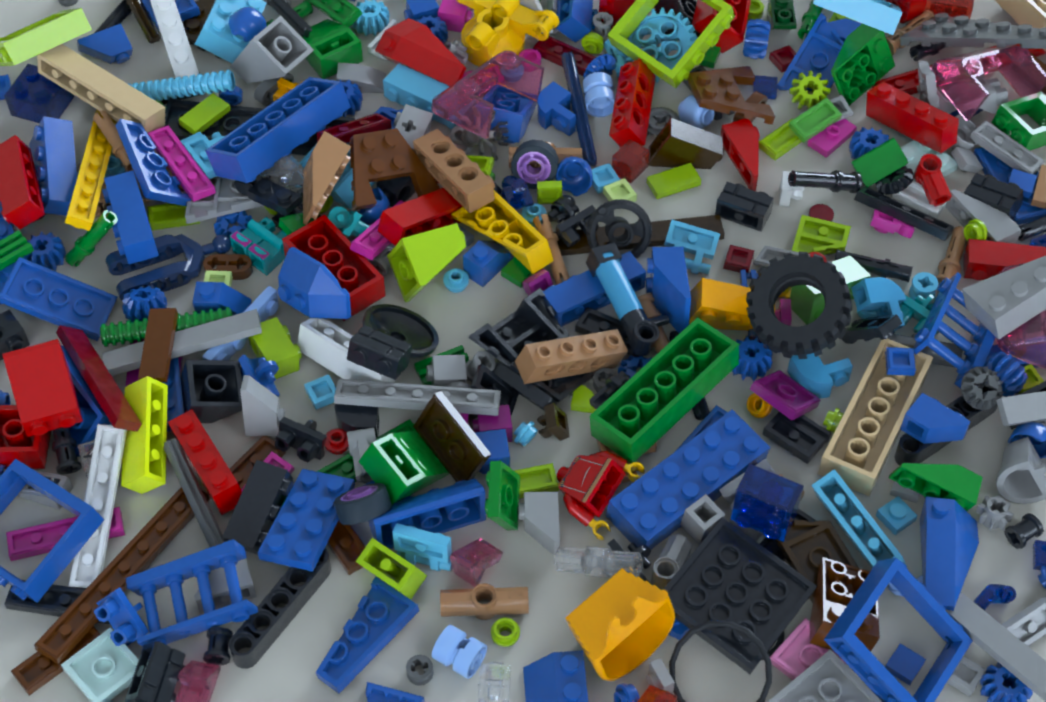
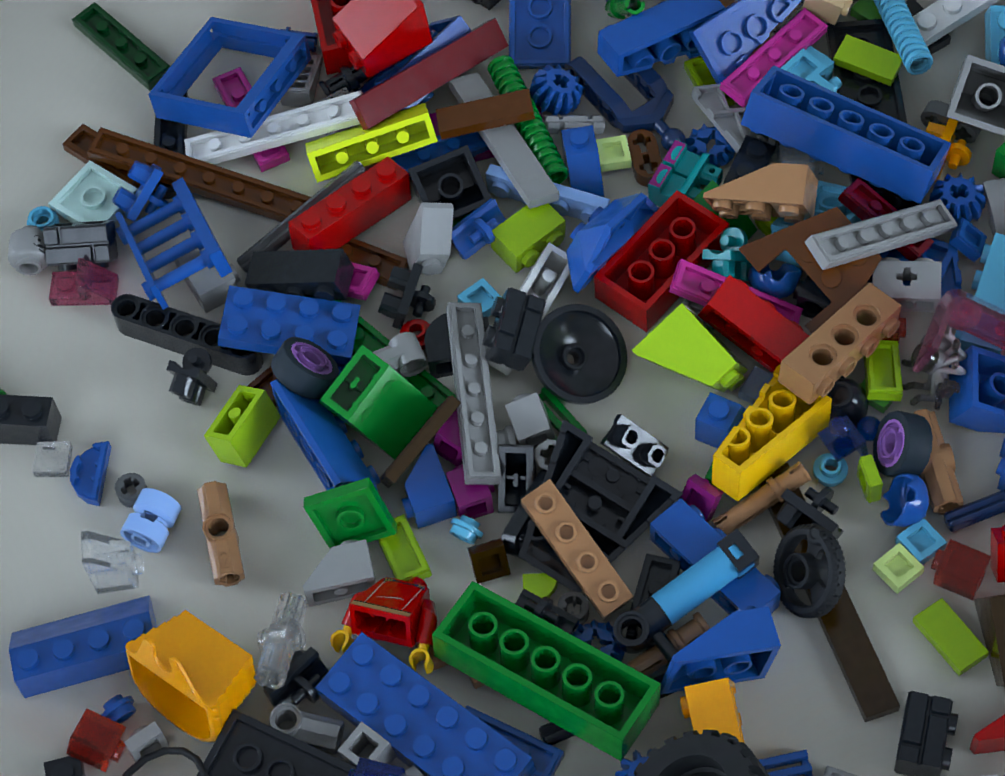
camera: 85 degrees right, 5 degrees up
(181, 297) = (557, 124): none -> light grey axle
(218, 646) = (129, 287): black bush -> none
(232, 97) = (920, 84): blue tile -> none
(334, 601) = (192, 379): none -> black hips
(374, 625) = (160, 425): blue wing -> none
(377, 100) = (968, 239): none -> blue tile
(379, 123) = (880, 234): none -> light grey tile
(423, 547) = (272, 450): medium azure plate -> none
(456, 280) = (687, 410): medium azure plate -> none
(474, 559) = (269, 507): clear pink slope -> none
(488, 311) = (635, 445): none -> black hips
(505, 624) = (186, 558): lime plate -> none
(555, 206) = (852, 501): black cylinder -> none
(694, 241) = (831, 672): medium azure plate -> none
(738, 259) = (829, 746): dark red tile -> none

